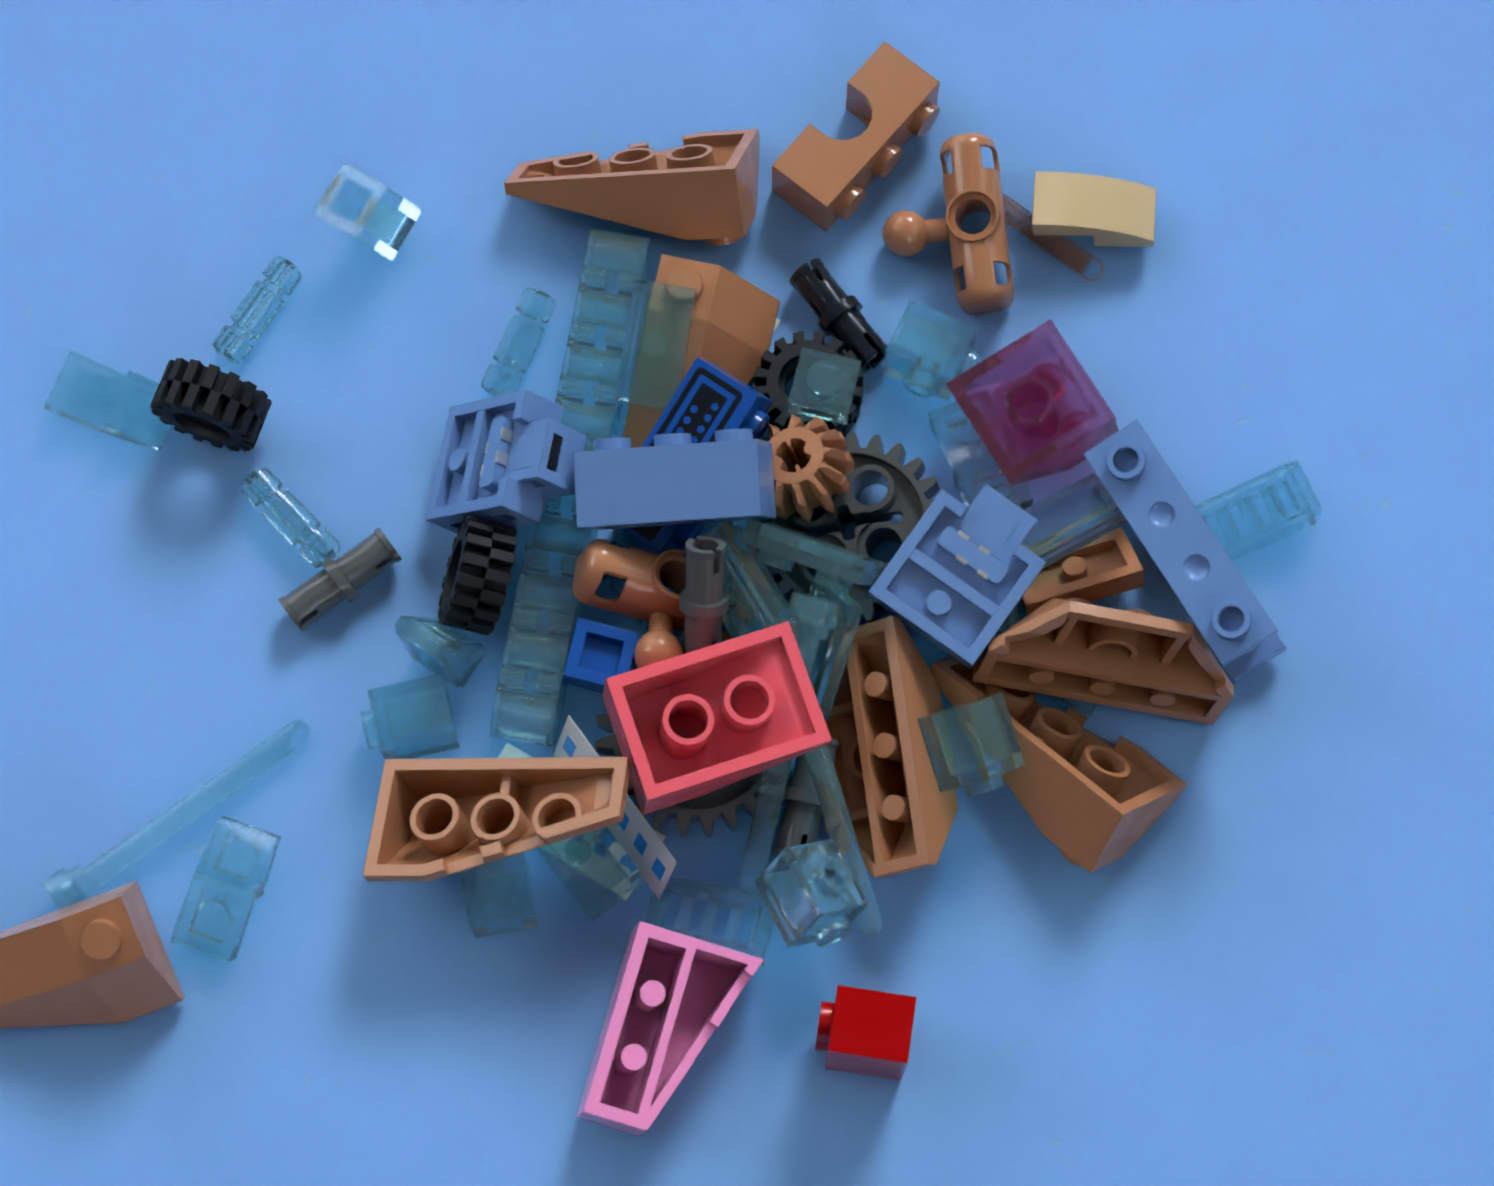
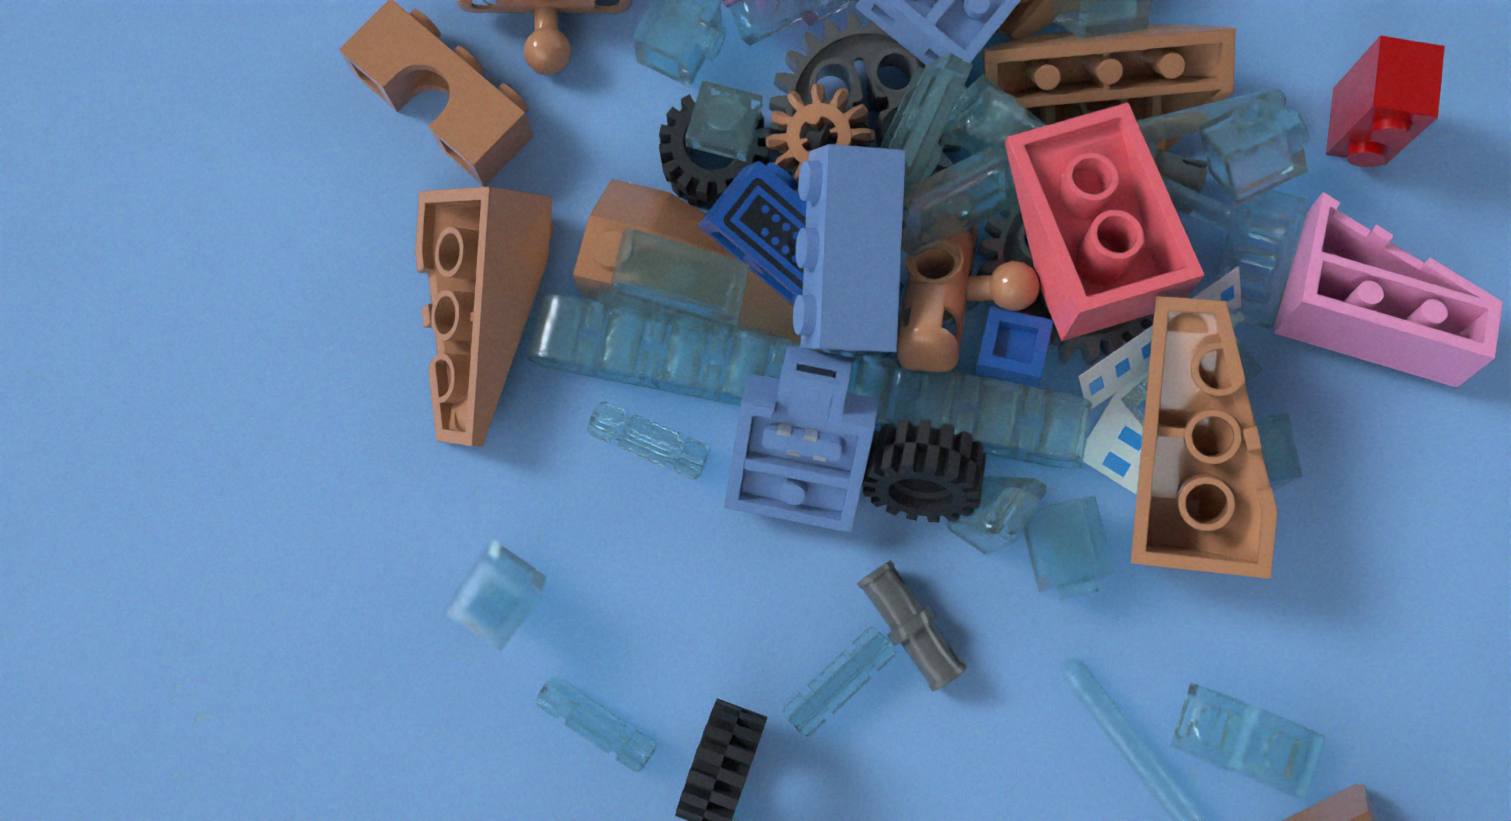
camera: 90 degrees left, 5 degrees up
(703, 598) = (970, 228): dark grey pin -> none
(839, 313) = (630, 119): black pin -> none

